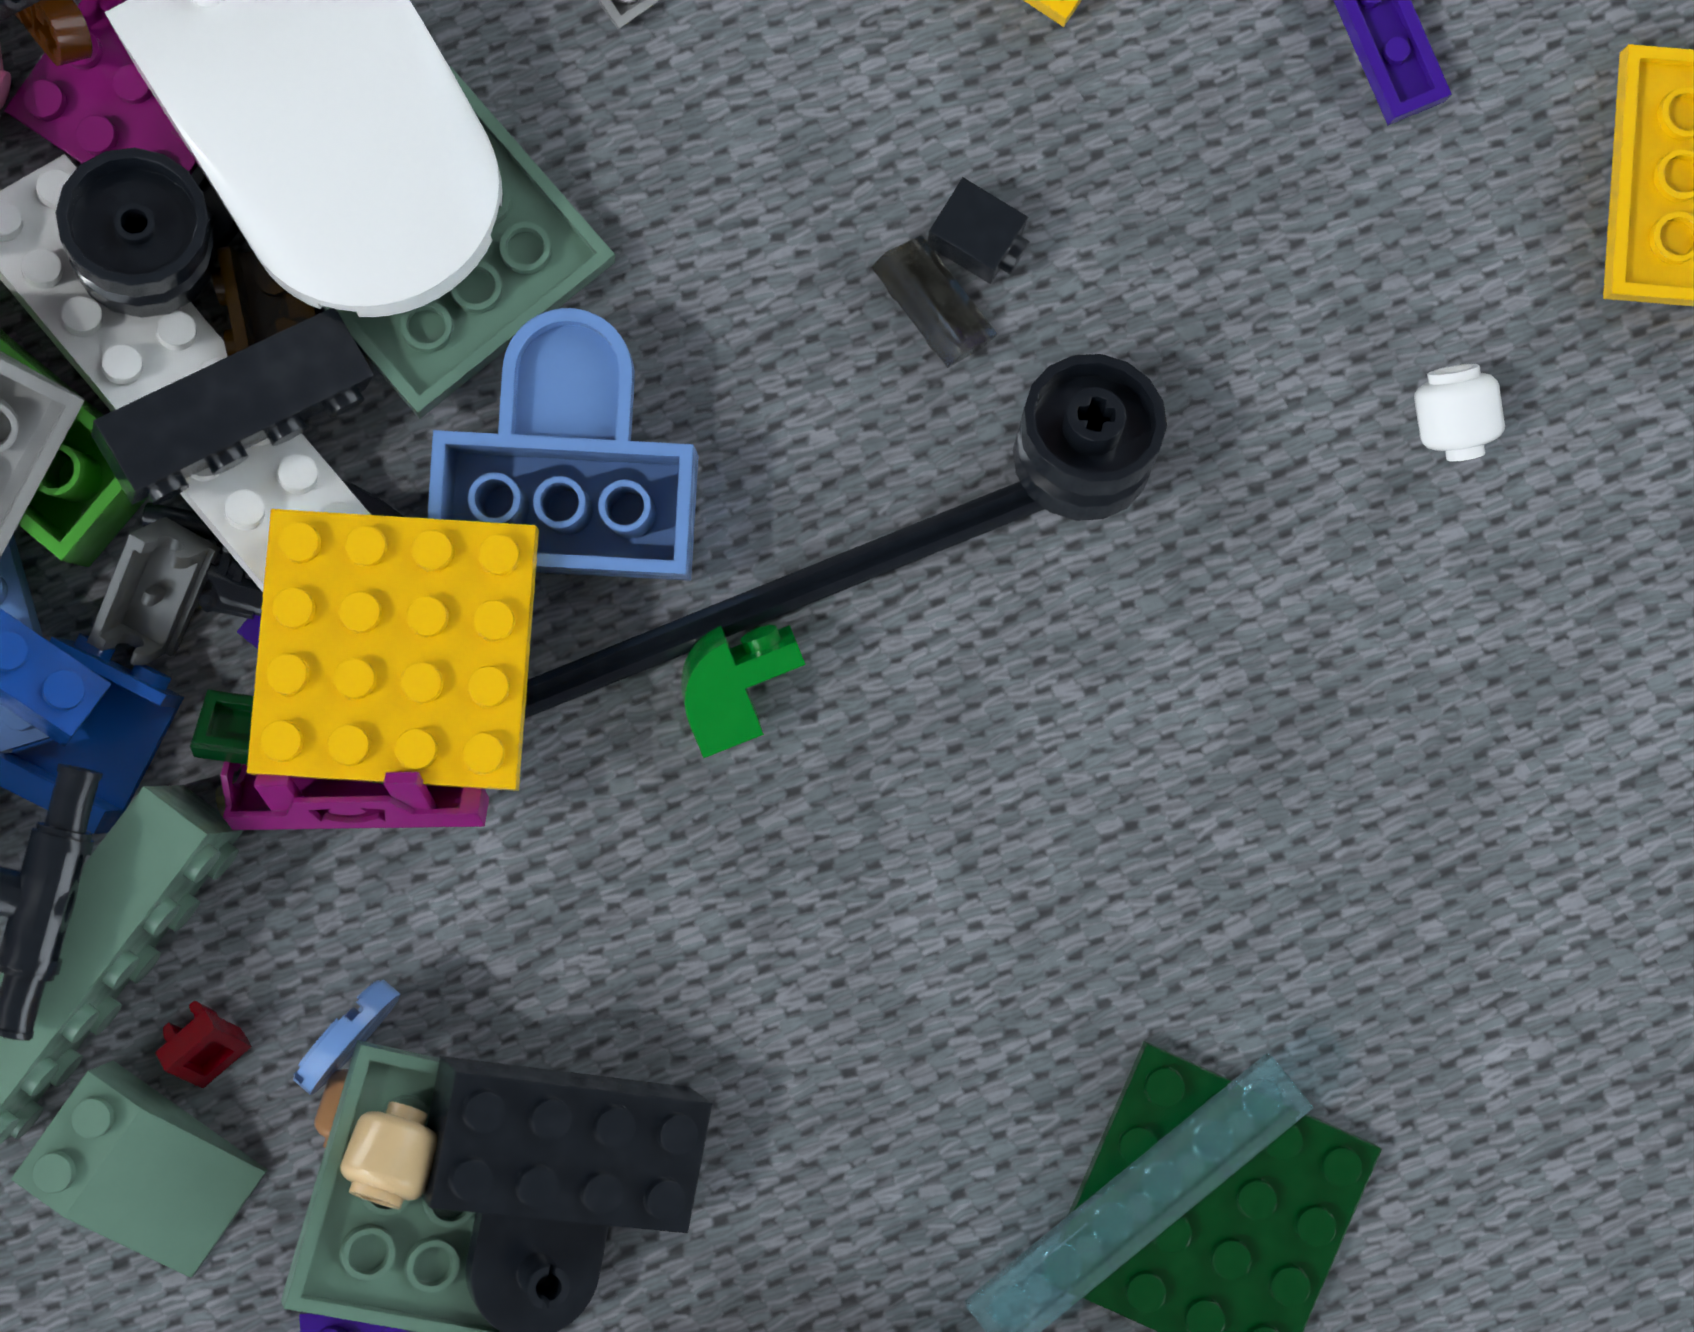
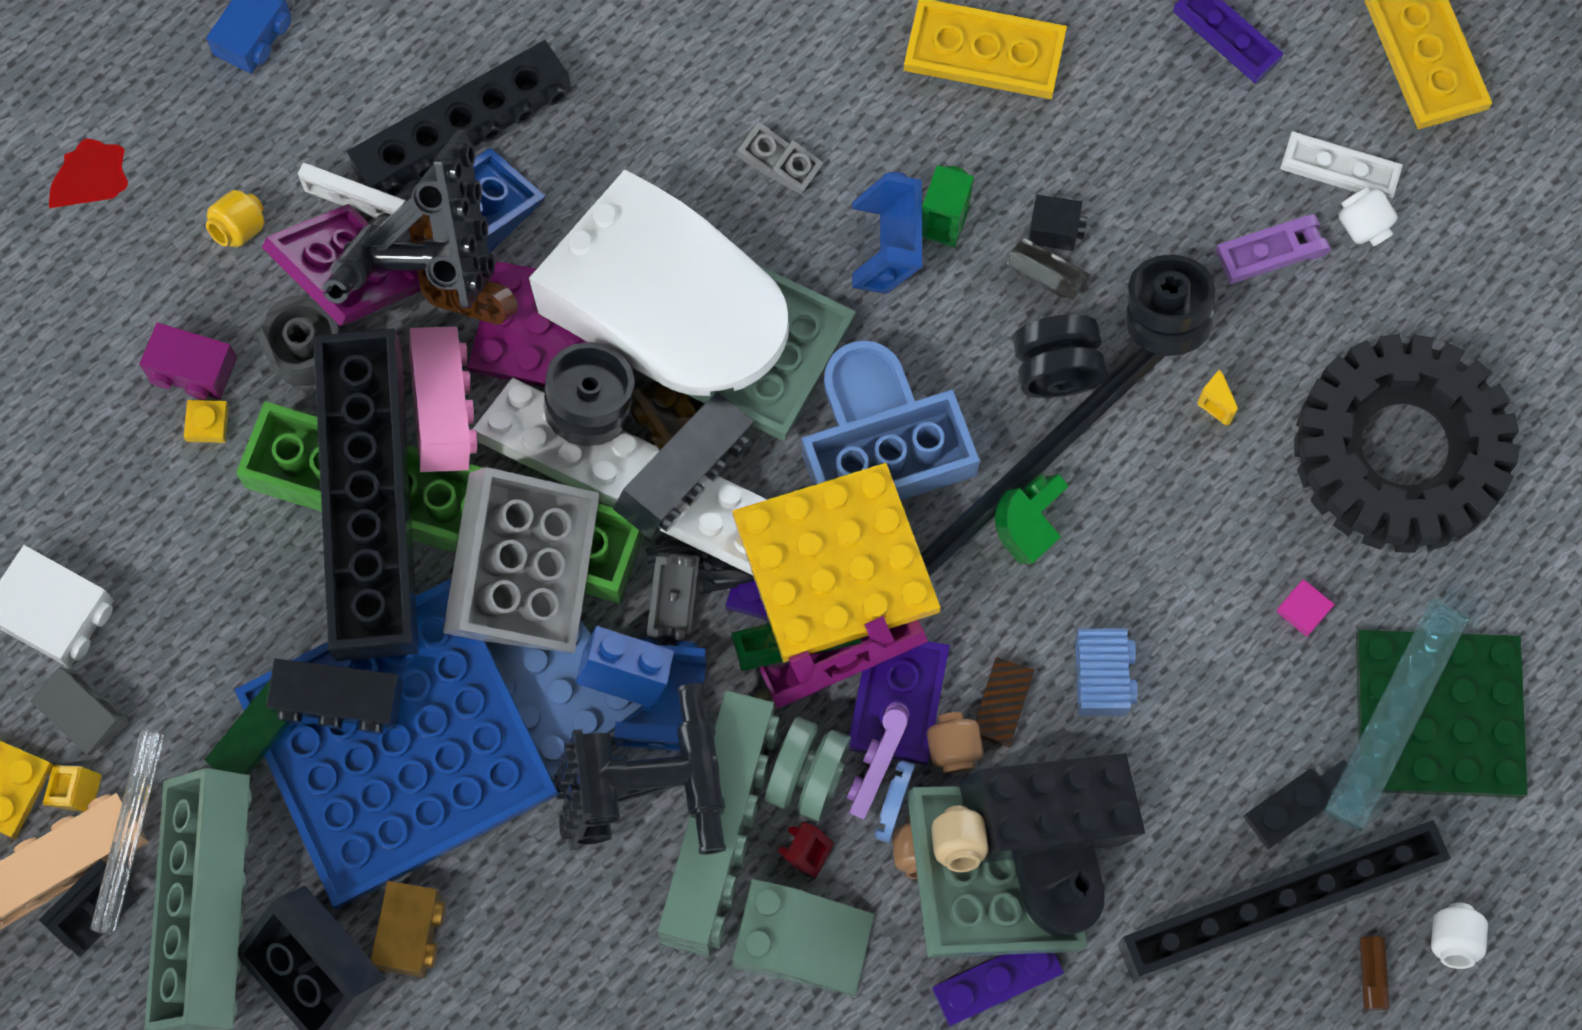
camera: 20 degrees left, 15 degrees down
(237, 939) = (812, 770): none -> sand green wheel
(349, 962) = (879, 757): none -> medium lavender plate
(426, 889) = (907, 678): none -> dark purple plate
(476, 980) = (955, 743): none -> medium nougat head
(580, 938) = (1003, 701): none -> tile
(706, 206) = (900, 210): none -> blue panel
(742, 959) = (1104, 672): none -> medium blue brick
(817, 138) = (946, 205): none -> green brick
(883, 452) = (1059, 356): none -> black wheel
(938, 1259) = (1294, 804): none -> black hinge
(1085, 976) = (1305, 608): none -> dark pink tile
(1098, 609) = (1218, 399): none -> yellow slope
(1289, 403) = (1272, 249): none -> medium lavender plate
(1457, 311) = (1340, 165): none -> white tile
(1462, 814) = (1416, 375): none -> black tyre

